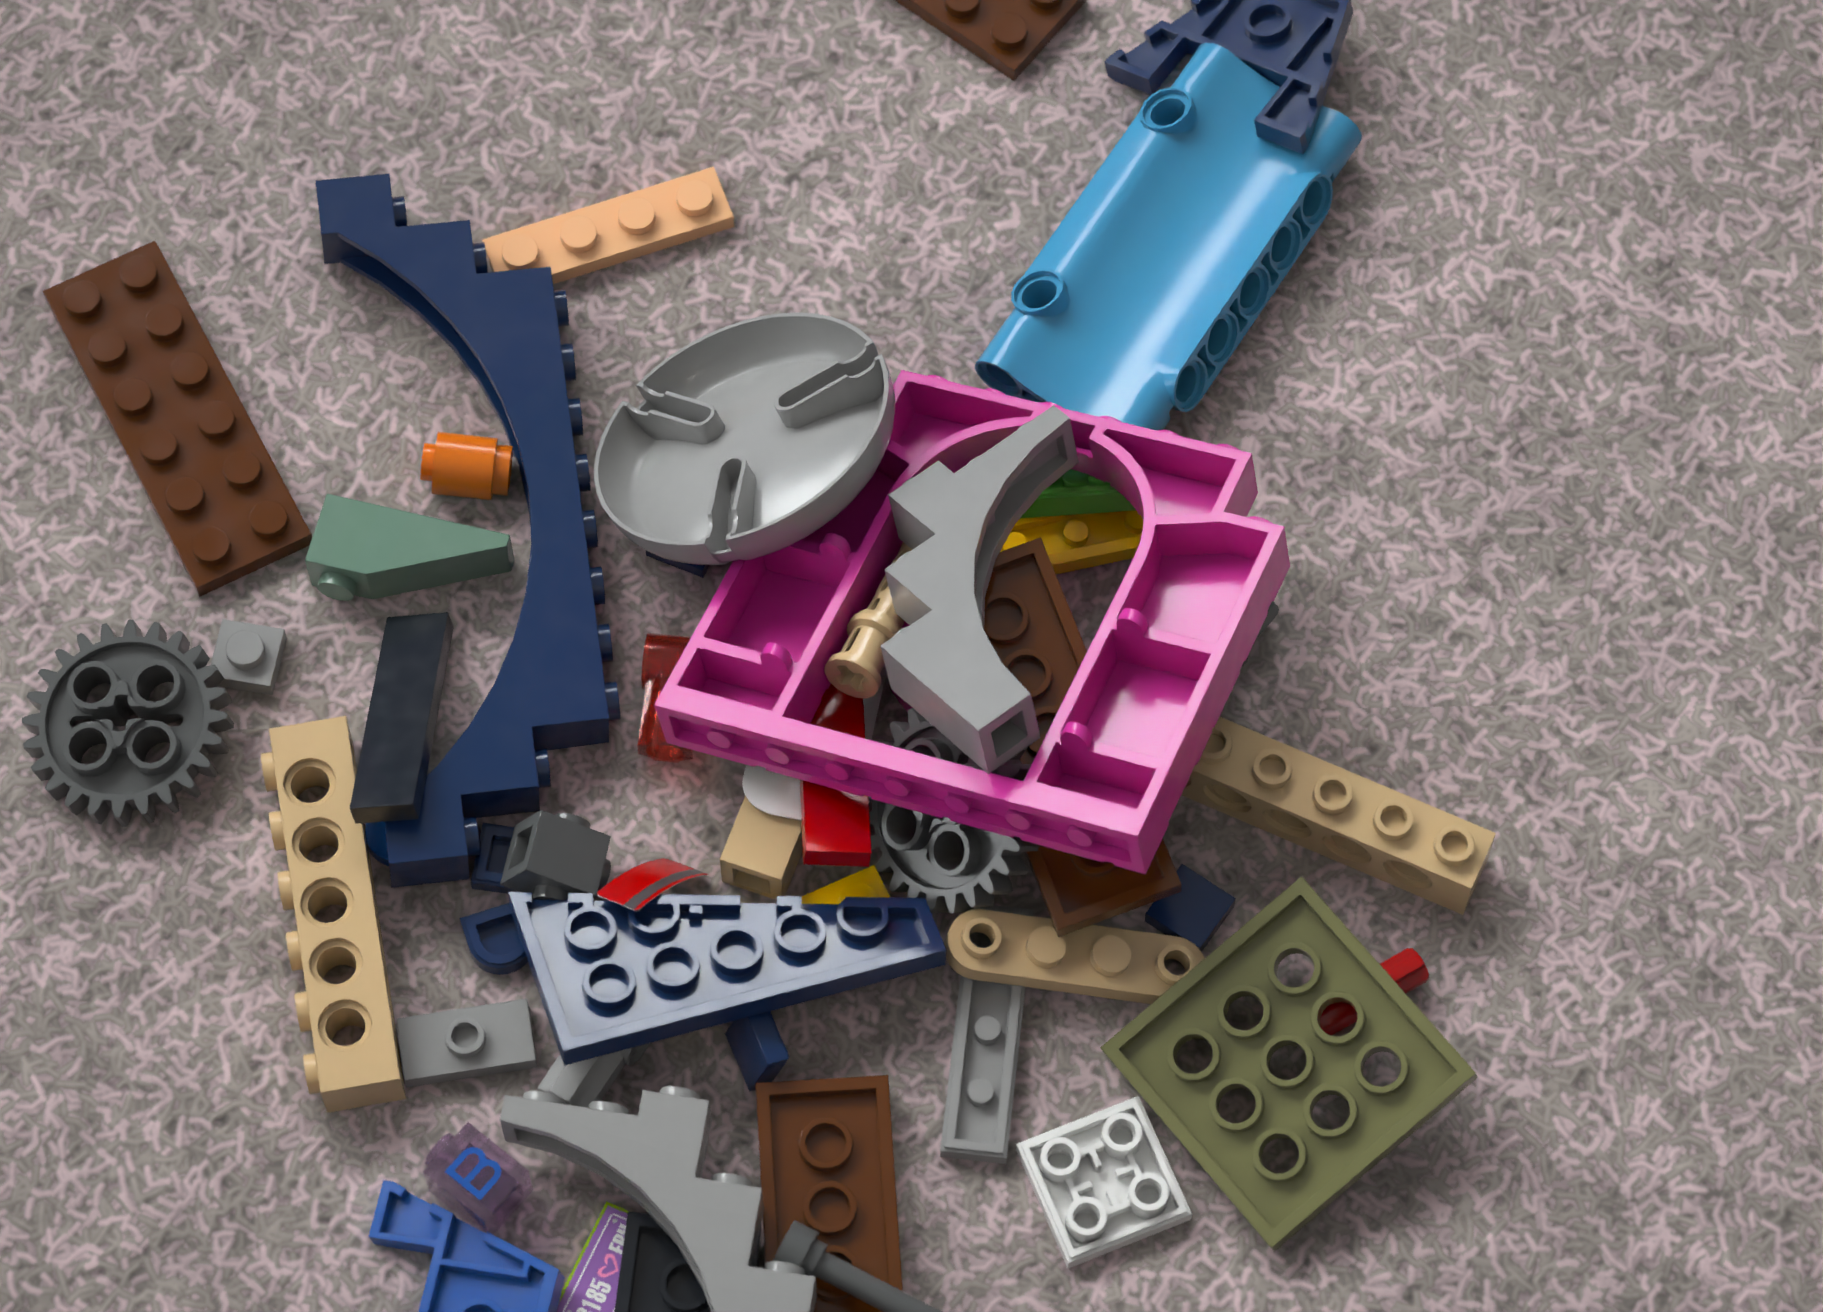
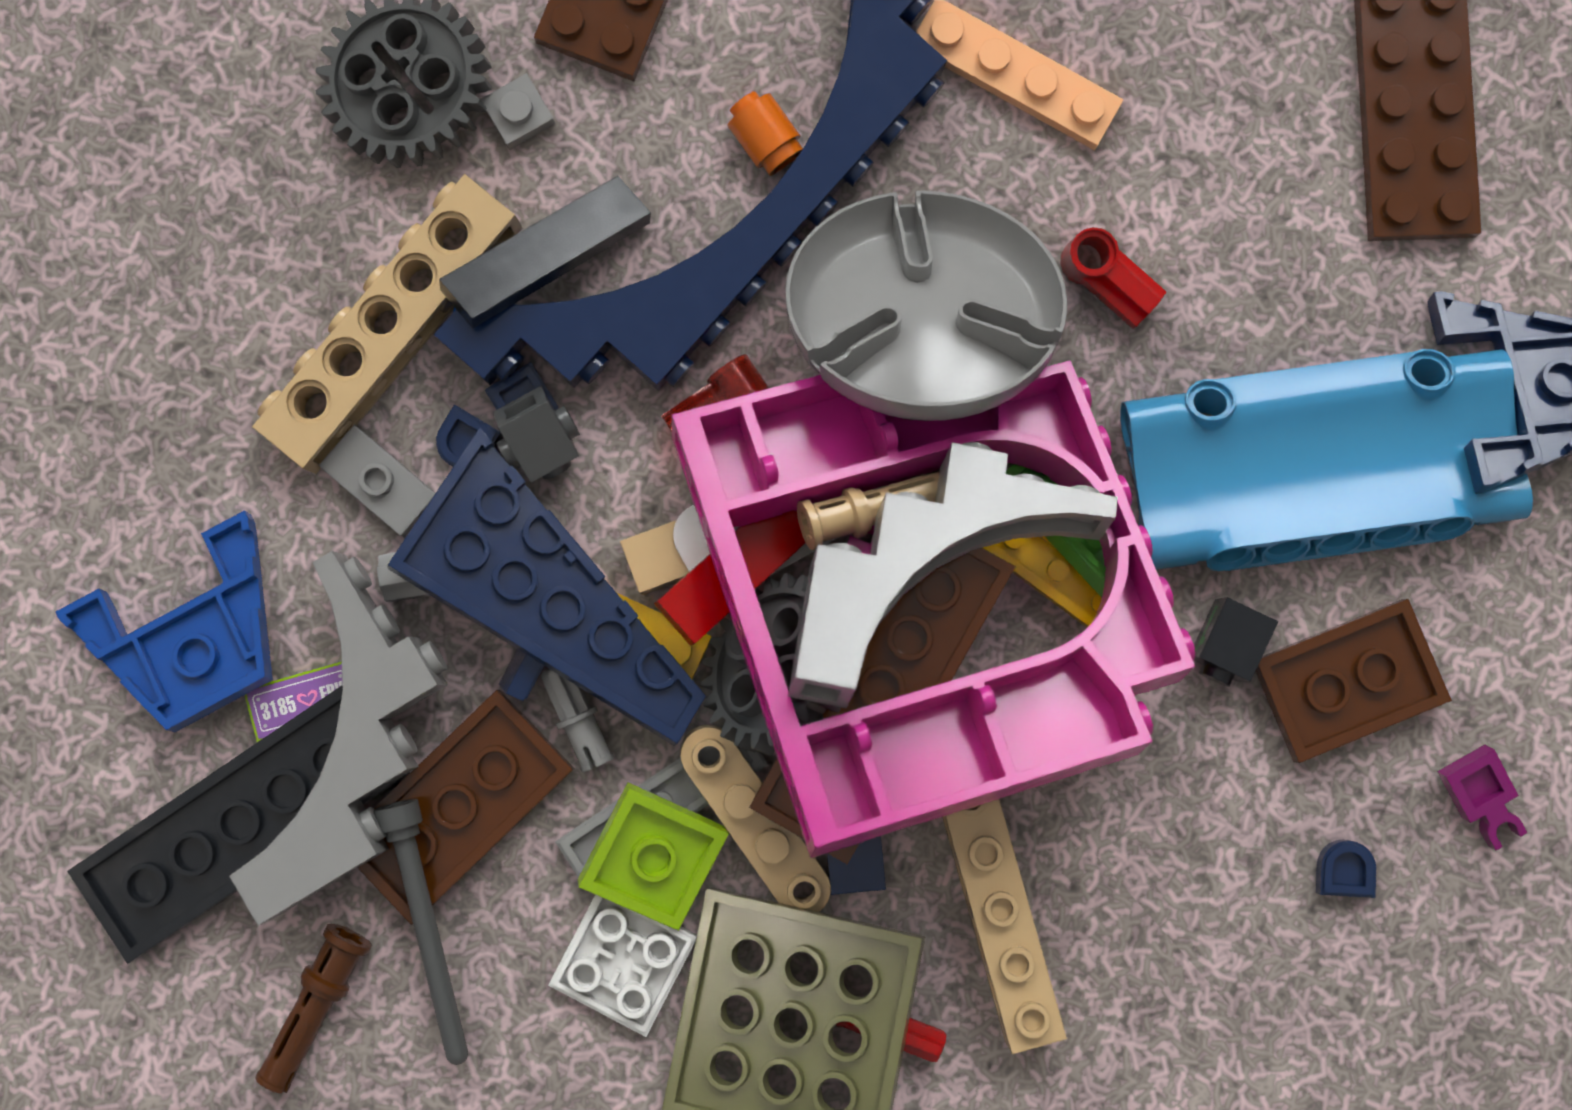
camera: 50 degrees right, 20 degrees up
(392, 552) = (657, 135): sand green slope -> none
(476, 1178) = (286, 568): clear purple brick -> none
(646, 881) = (571, 507): red sticker -> none
(842, 1038) = (577, 721): none -> light grey axle
(860, 289) = (1117, 280): none -> red piece
(1029, 1064) = (652, 856): none -> lime plate
(1272, 436) = (1232, 641): none -> black brick
(1382, 381) = (1351, 680): none -> reddish brown plate
(1548, 514) = (1346, 870): none -> dark blue tile
(1567, 355) = (1481, 790): none -> magenta plate

